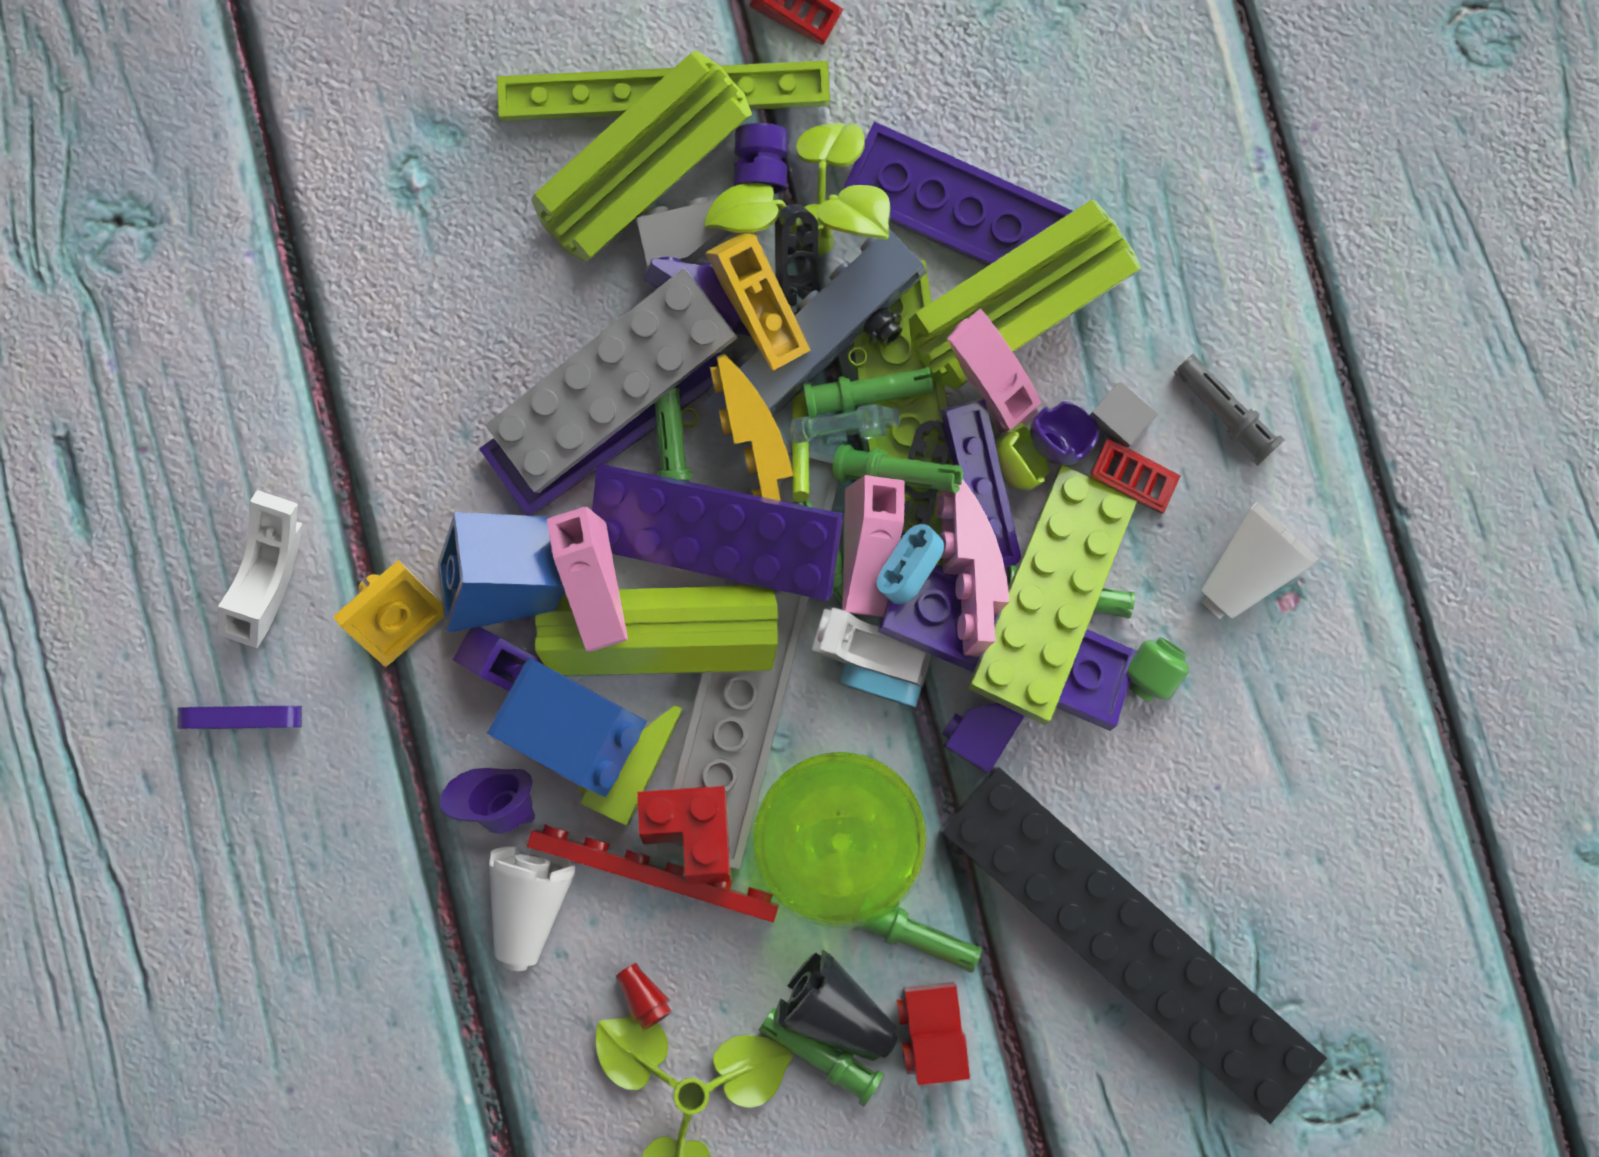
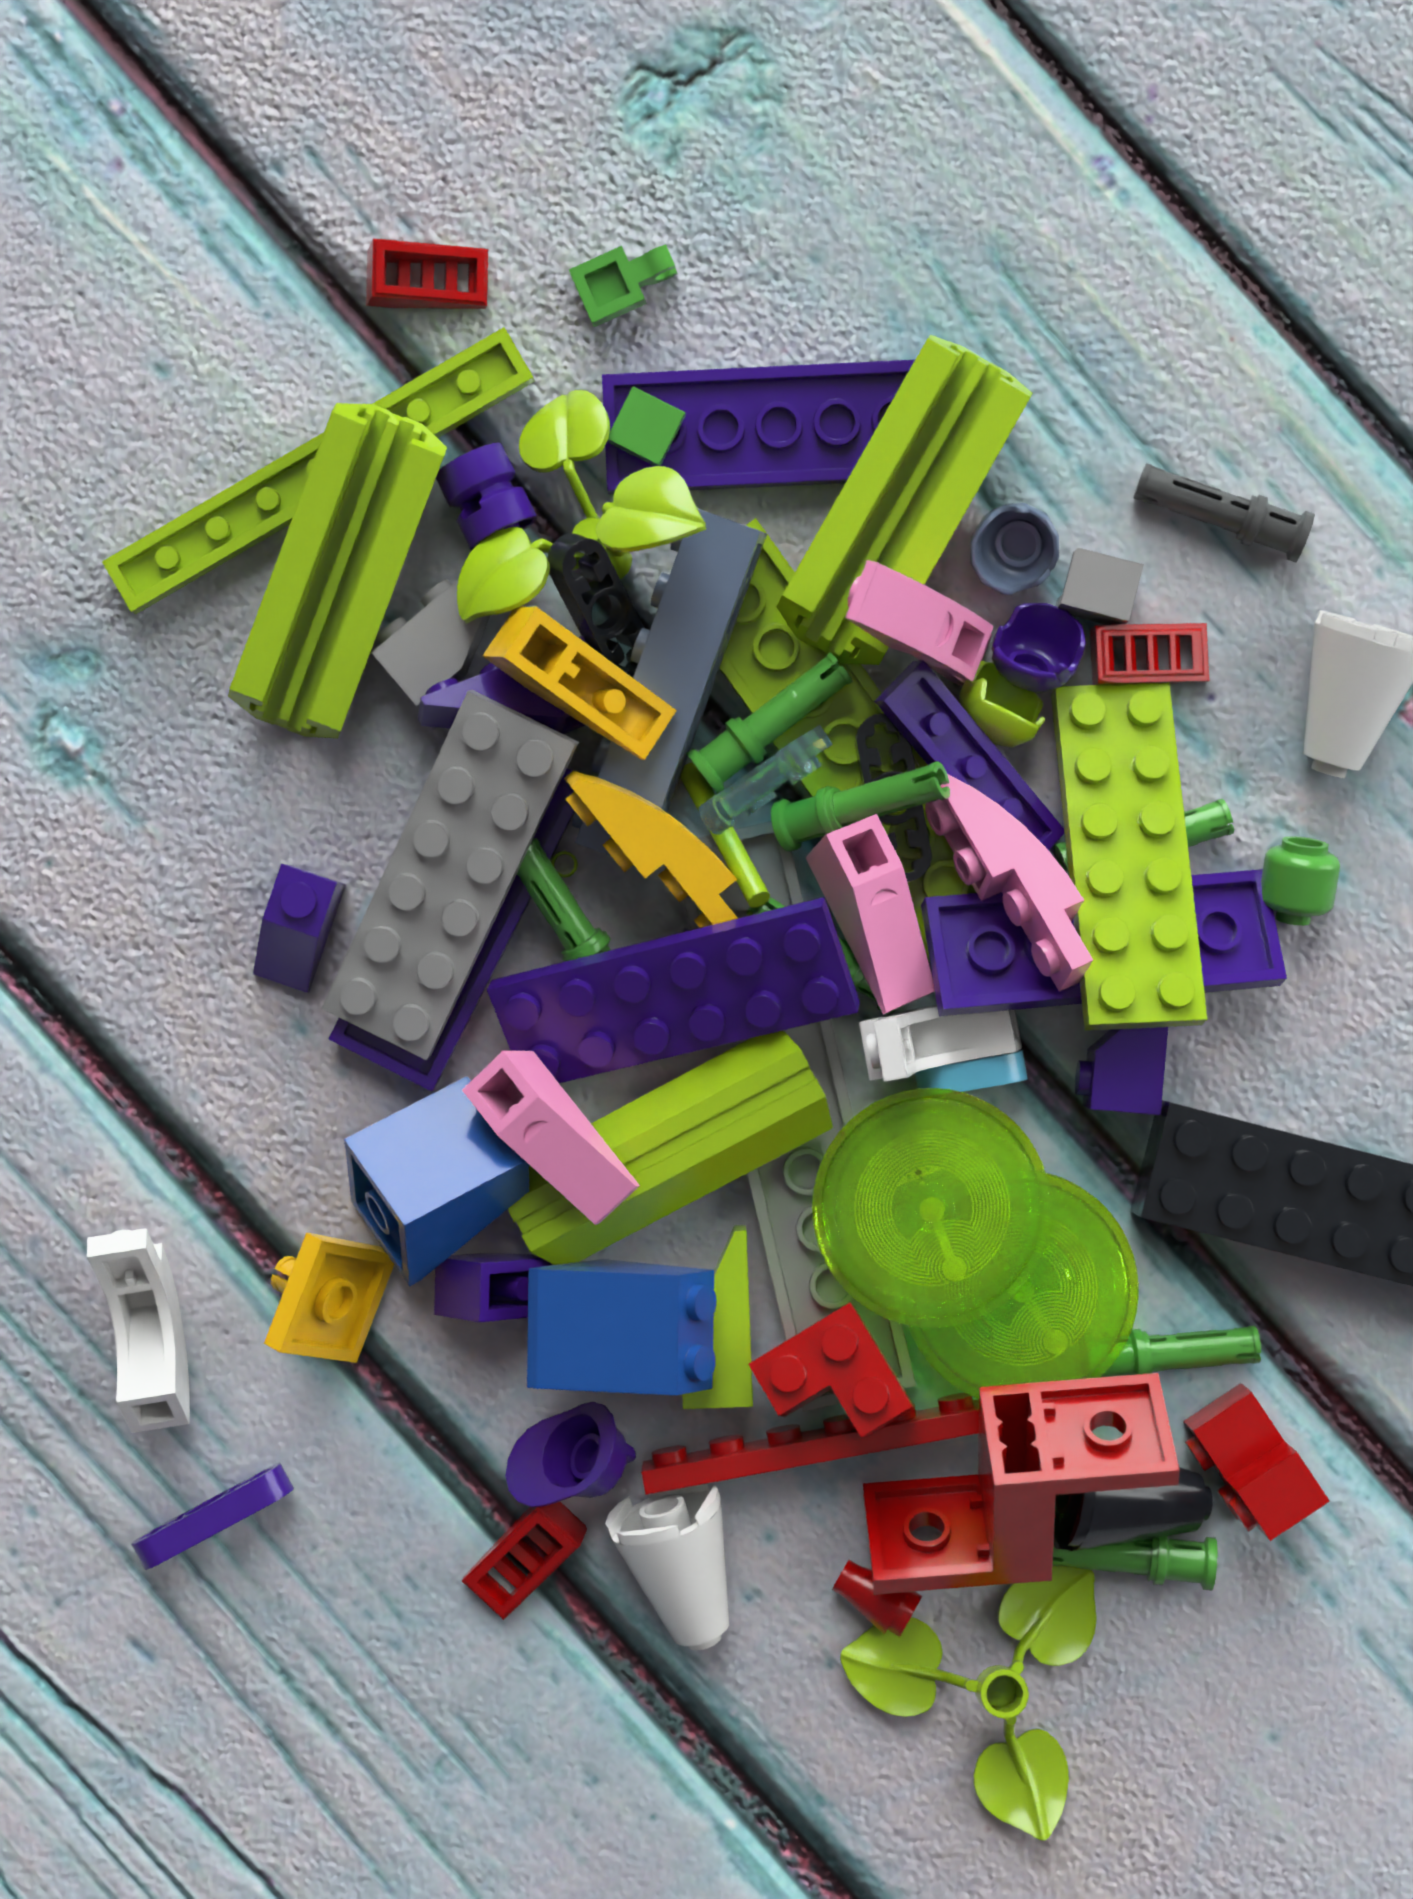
camera: 25 degrees left, 5 degrees up
(447, 834) = (552, 1529): none -> red slope
(497, 367) = (296, 926): none -> dark purple slope
(794, 939) = (1030, 1448): none -> red bracket
(809, 754) = (932, 1208): none -> clear neon green brick
(857, 364) = (739, 673): lime piece -> none
(883, 327) = (749, 632): black plate -> none
(885, 166) = (646, 427): none -> bright green tile
(910, 70) = (613, 284): none -> bright green plate
(910, 564) = (938, 914): medium azure beam -> none
(1080, 363) = (1014, 548): none -> sand blue hair

